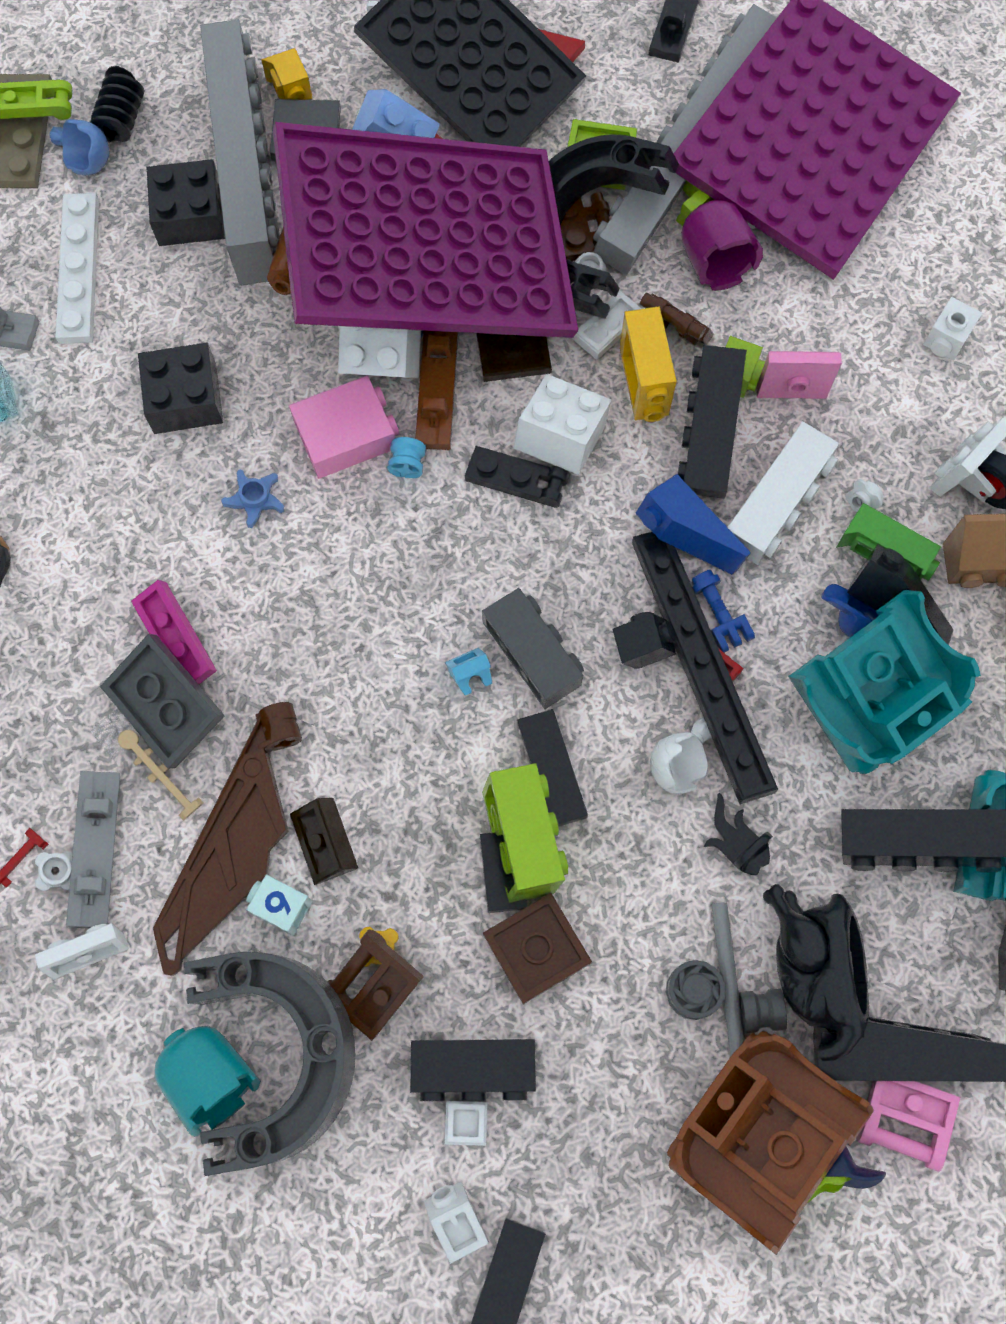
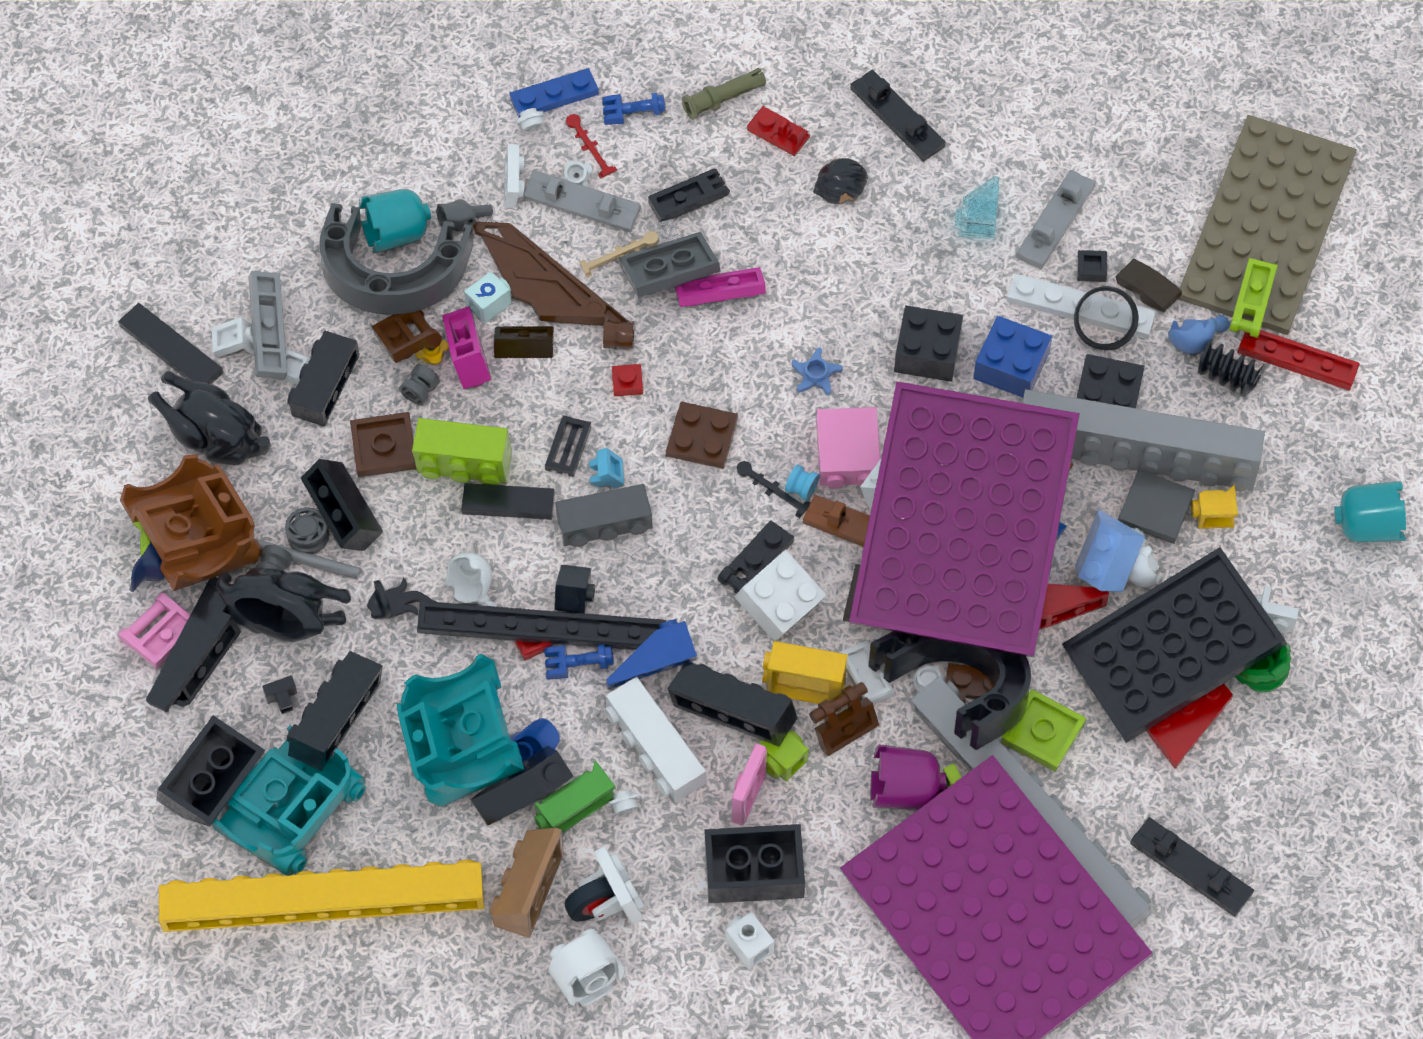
camera: 110 degrees right, 10 degrees down
(22, 268) = (1091, 265): none -> black plate
(30, 208) = (1151, 285): none -> dark brown slope
(50, 723) = (688, 195): none -> black hinge
(77, 248) = (1112, 346): none -> black tyre
(81, 58) = (1300, 358): none -> red tile
(162, 996) = (461, 213): none -> dark grey piece
(170, 302) = (1012, 356): none -> blue brick
(336, 696) = (627, 380): none -> red plate
(360, 903) = (466, 348): none -> dark pink slope
(380, 588) = (702, 435): none -> reddish brown plate
(406, 529) = (745, 469): none -> black piece
(423, 1180) = (267, 325): none -> light grey hinge
(437, 938) = (419, 384): none -> dark grey wheel
(455, 743) = (561, 467): none -> black tile
(602, 1191) = (211, 422): none -> black piece
(650, 957) = (341, 505): none -> black brick
(877, 346) = (754, 863): none -> black brick
(920, 922) = (281, 691): none -> black tile

